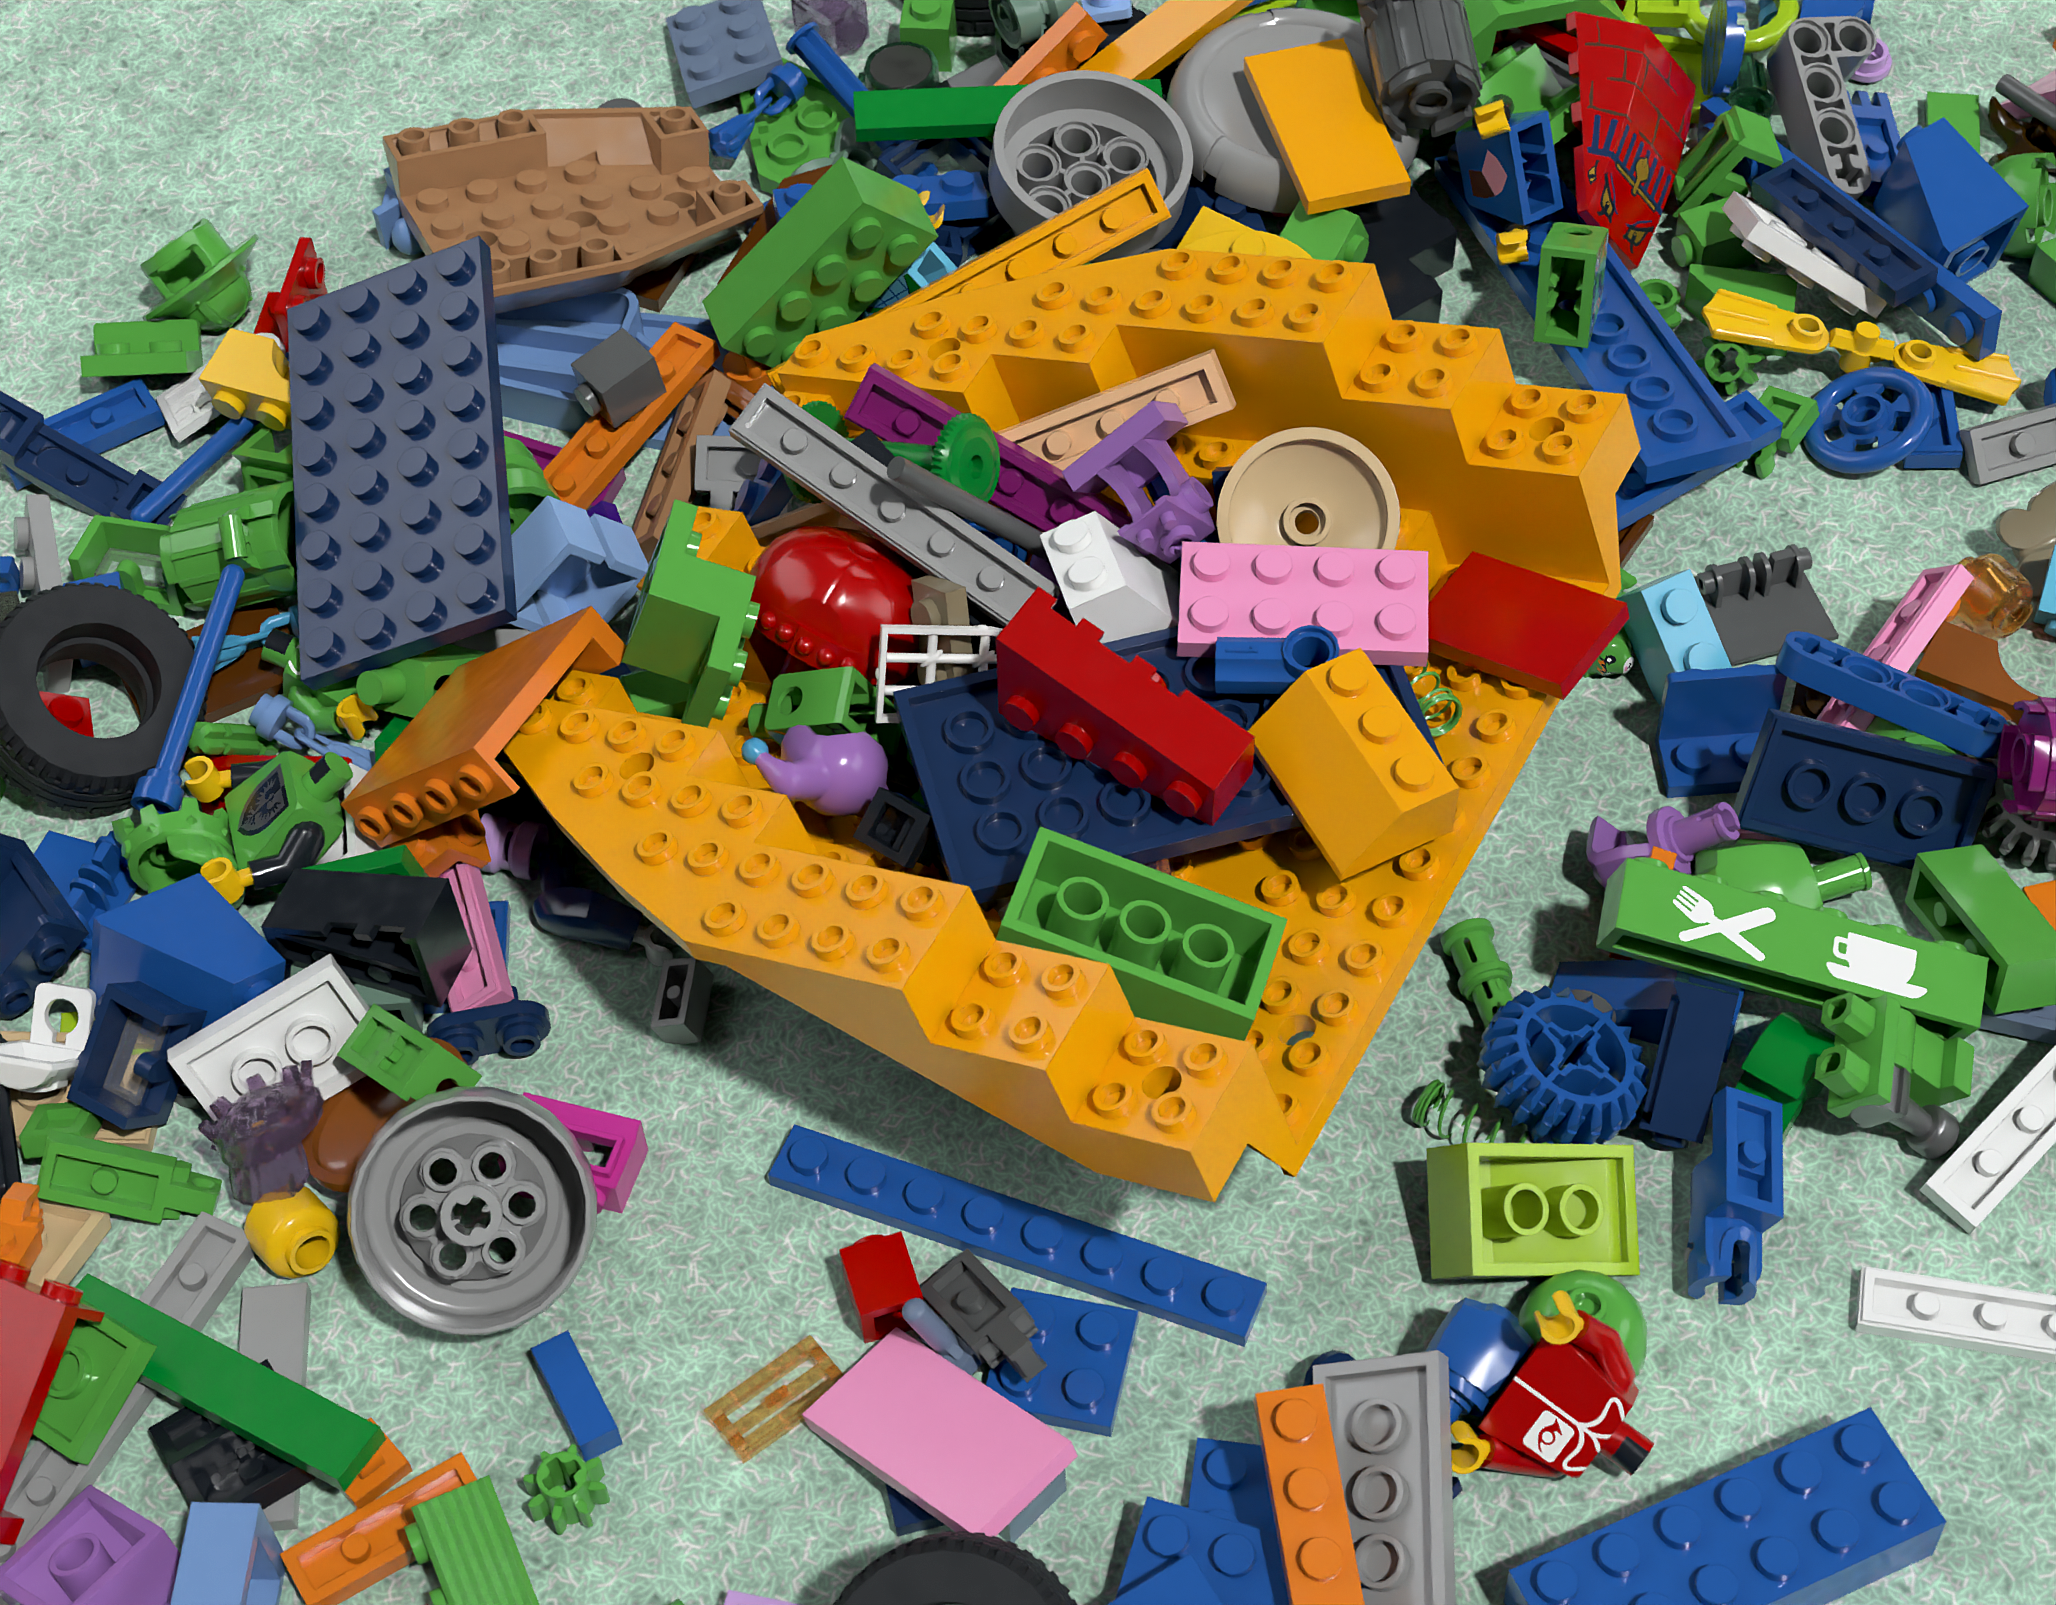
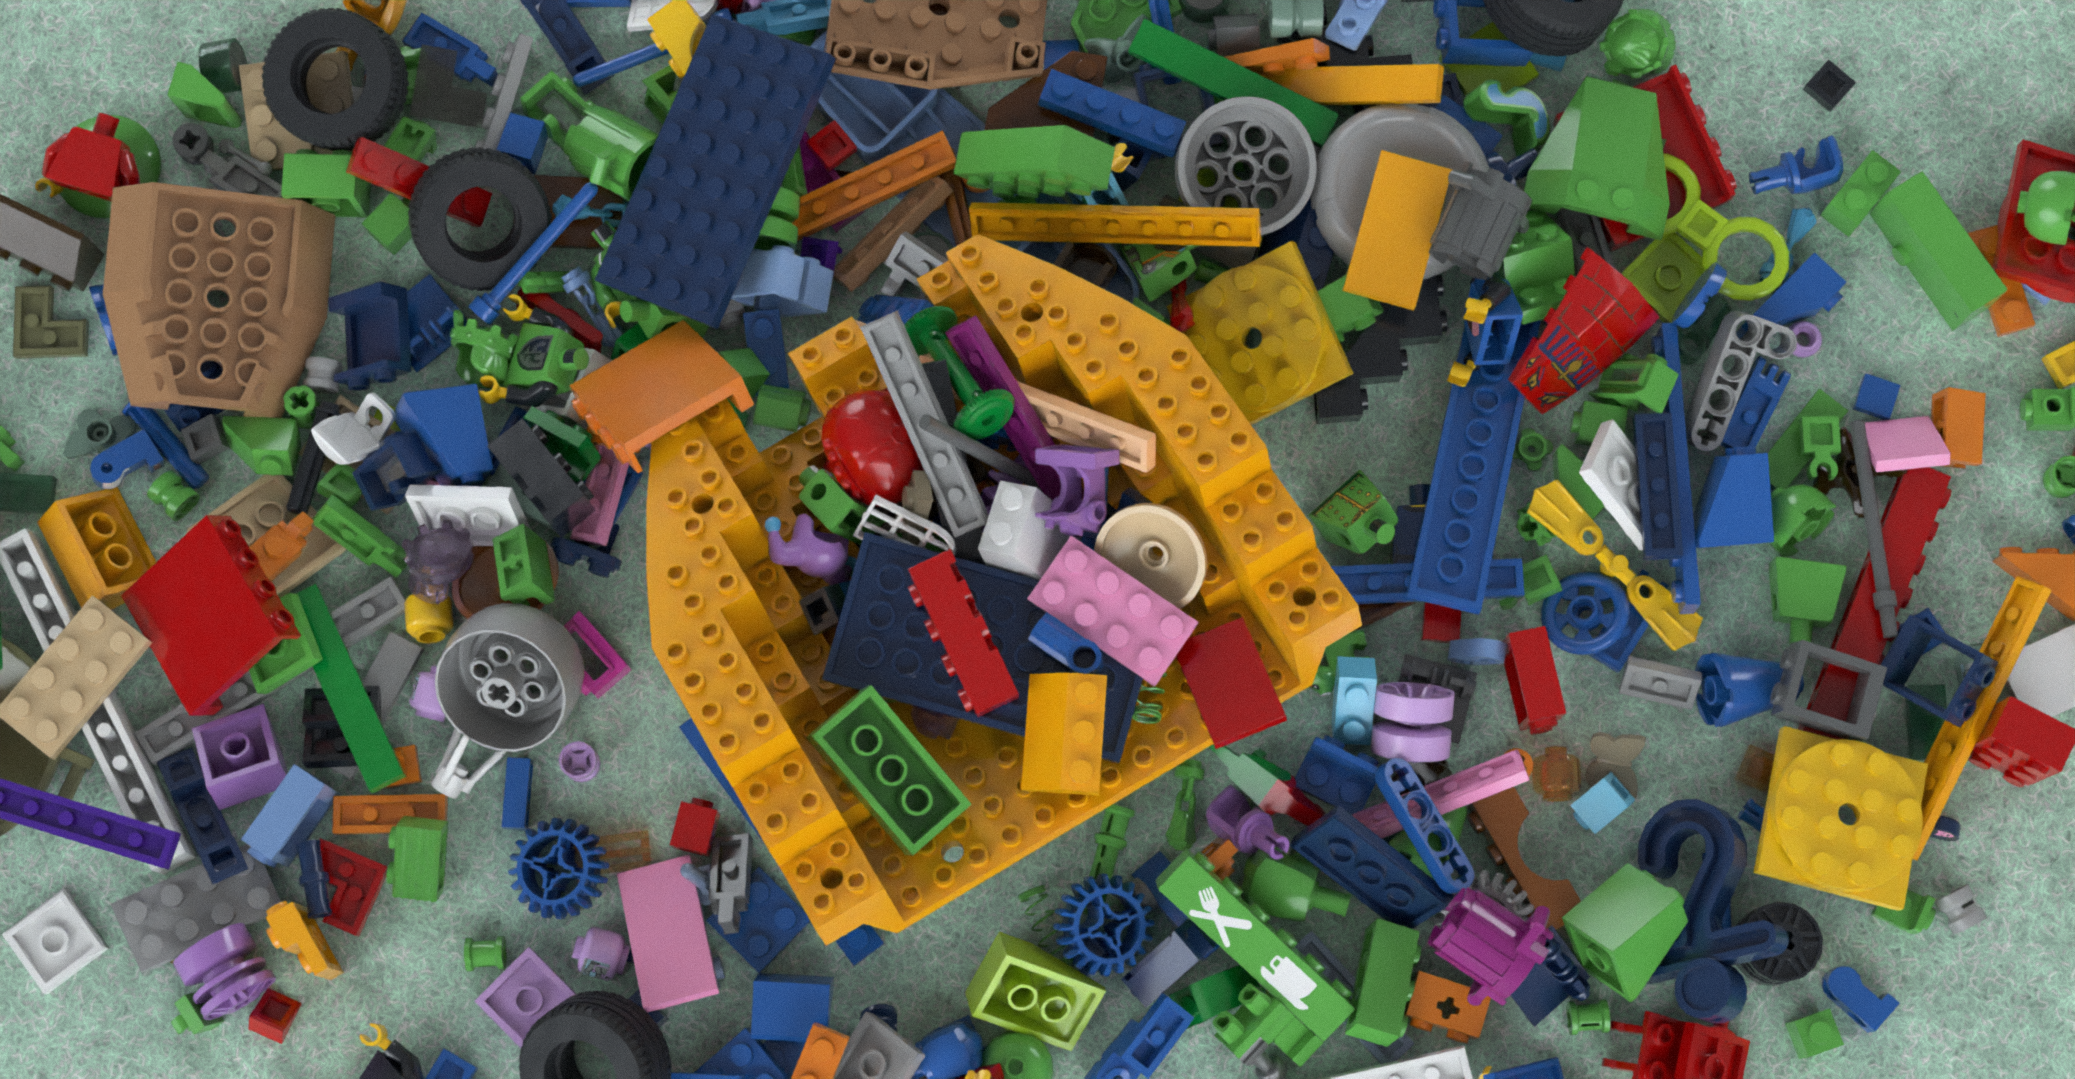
camera: 30 degrees right, 25 degrees up
(362, 1329) = (424, 697): none -> lavender head
(456, 1422) = (451, 775): none -> white plant
(537, 417) = (831, 146): none -> red tile
(551, 1498) = (490, 851): bright green gear -> none
(617, 378) = (881, 161): dark grey brick -> none
(637, 1287) = (578, 756): none -> lavender wheel
(656, 1460) = (554, 882): none -> blue gear
(692, 619) = (787, 418): bright green bracket -> none
(847, 1533) = (601, 953): none -> lavender head
(1191, 1427) = (789, 1005): none -> blue slope
(1570, 269) = (1467, 424): bright green torso -> none
(1570, 918) = (1182, 828): none -> bright green piece
(1631, 789) = (1268, 785): none -> animal
(1703, 526) = (1440, 623): none -> red tile
(1761, 595) = (1412, 721): none -> lavender wheel
(1778, 513) = (1477, 651): none -> medium blue beam
(1825, 507) = (1533, 680): none -> red window
(1984, 125) = (1820, 439): none -> bright green plate
(1987, 67) = (1876, 397): none -> blue tile

